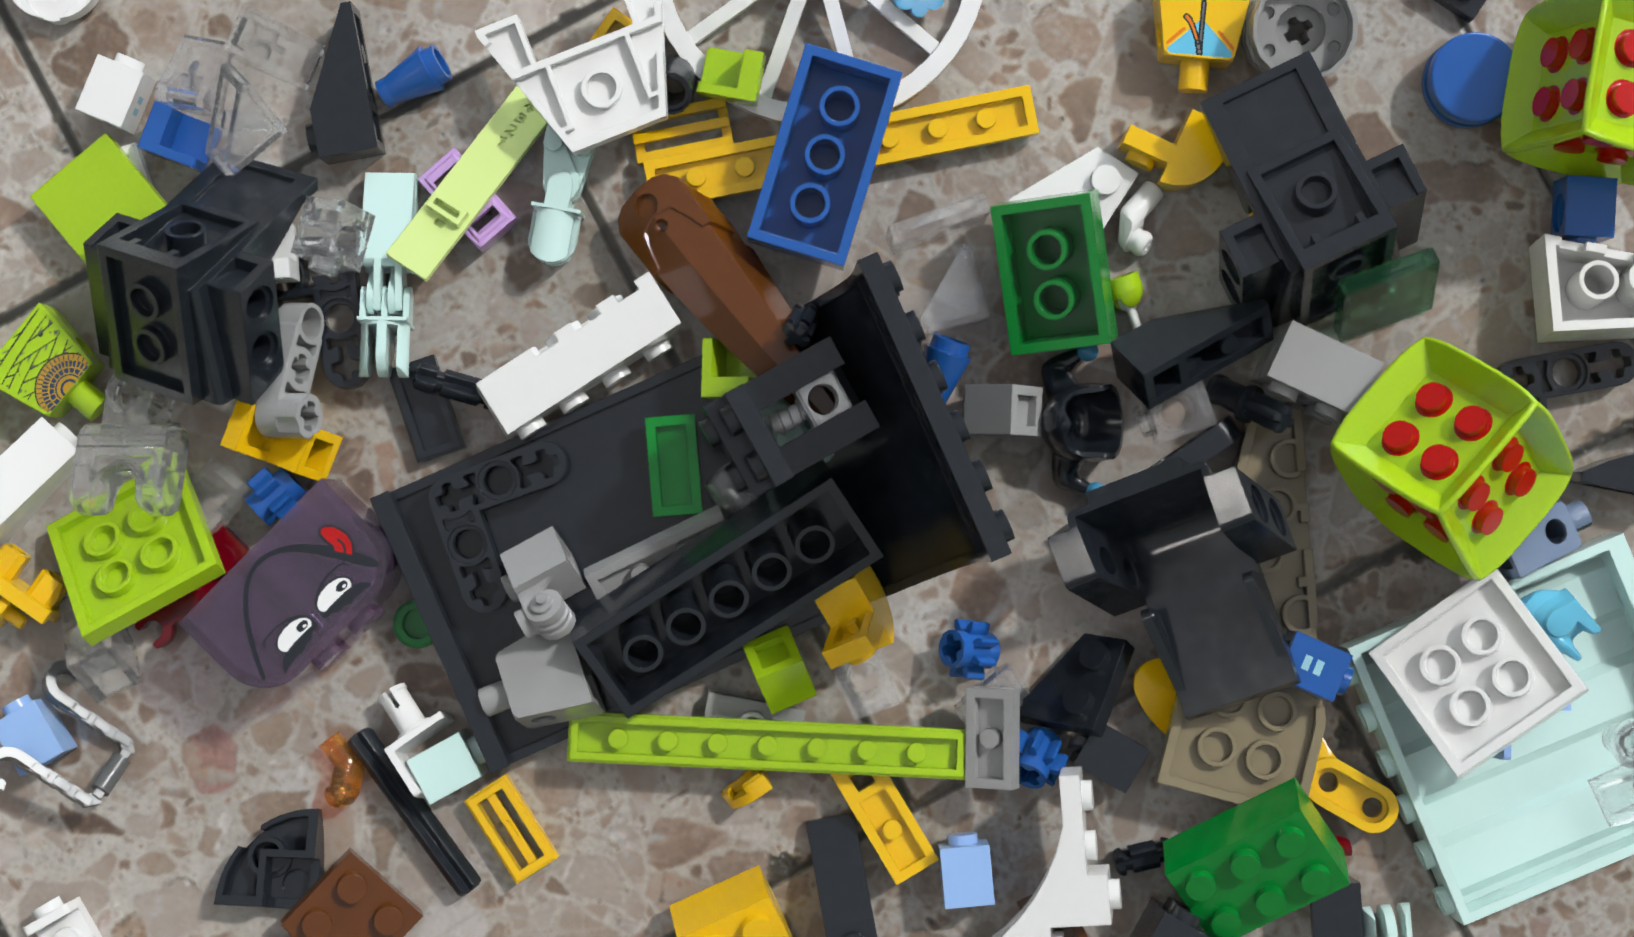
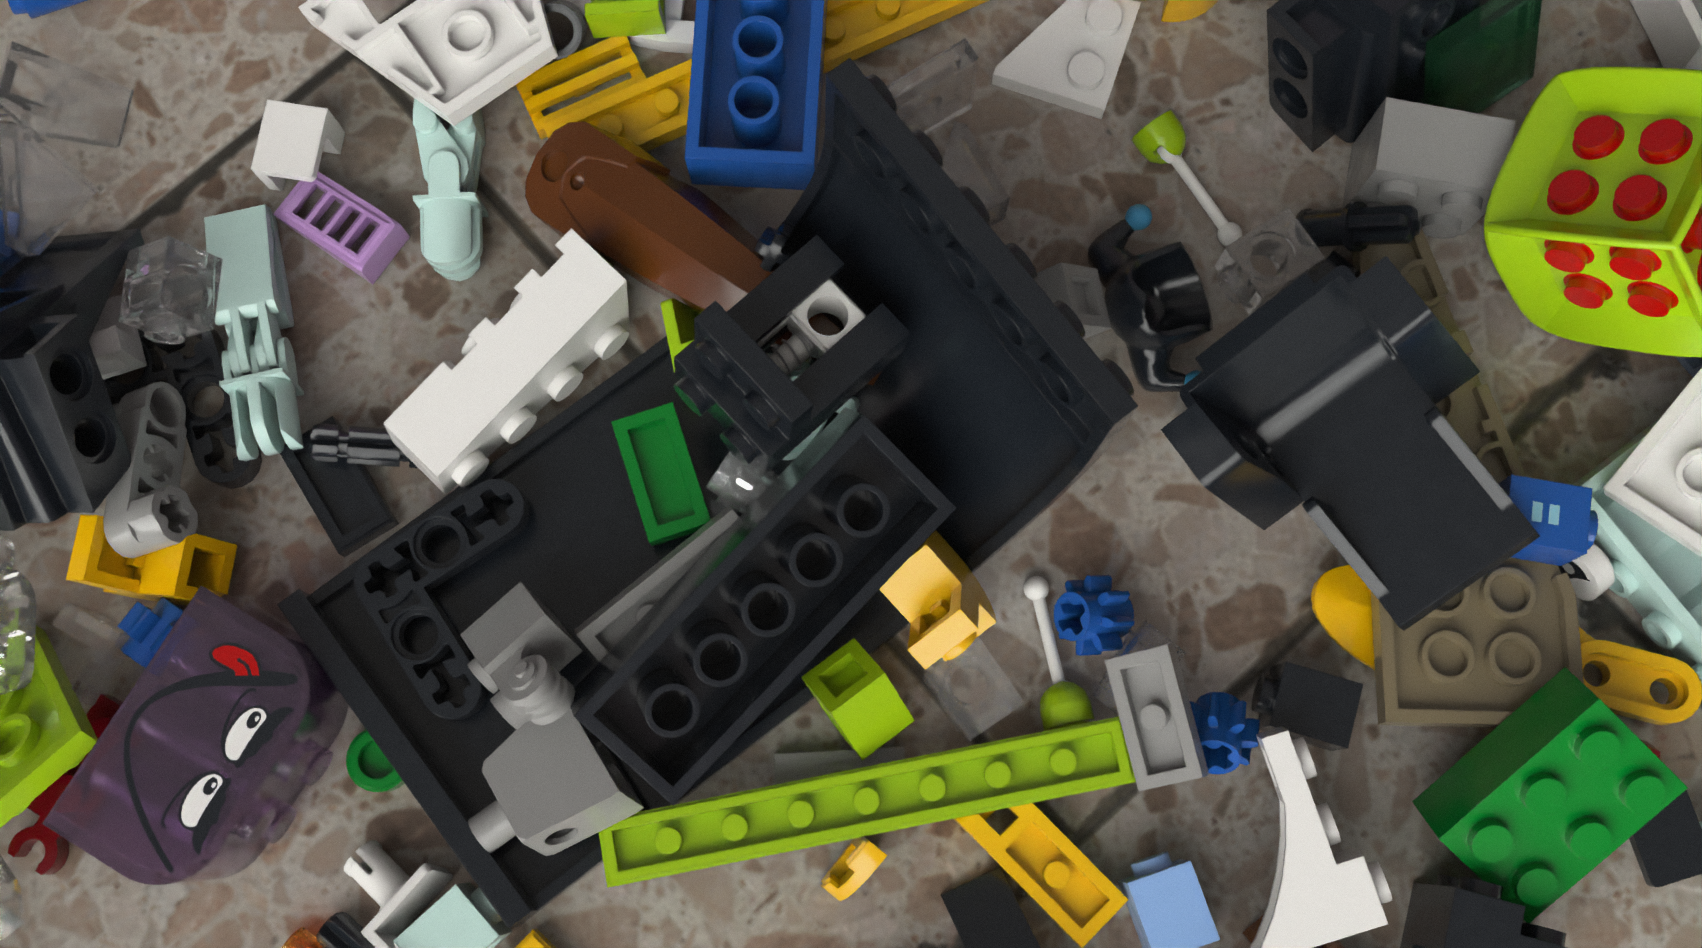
camera: 10 degrees left, 10 degrees down
(344, 100) = (161, 137): black slope -> none
(416, 76) = (244, 95): blue cone -> none
(447, 131) = (293, 142): none -> white panel
(468, 186) = (333, 202): yellowish green piece -> none
(931, 706) = (1064, 701): none -> hinge
(1054, 272) = (1073, 123): green brick -> none
(1080, 687) = (1249, 628): black wing -> none
(1132, 217) = (1147, 54): white arm -> none
(1139, 857) = (1388, 830): black piece -> none
(1188, 347) = (1260, 177): black slope -> none
(1345, 708) = (1590, 574): none -> white tile

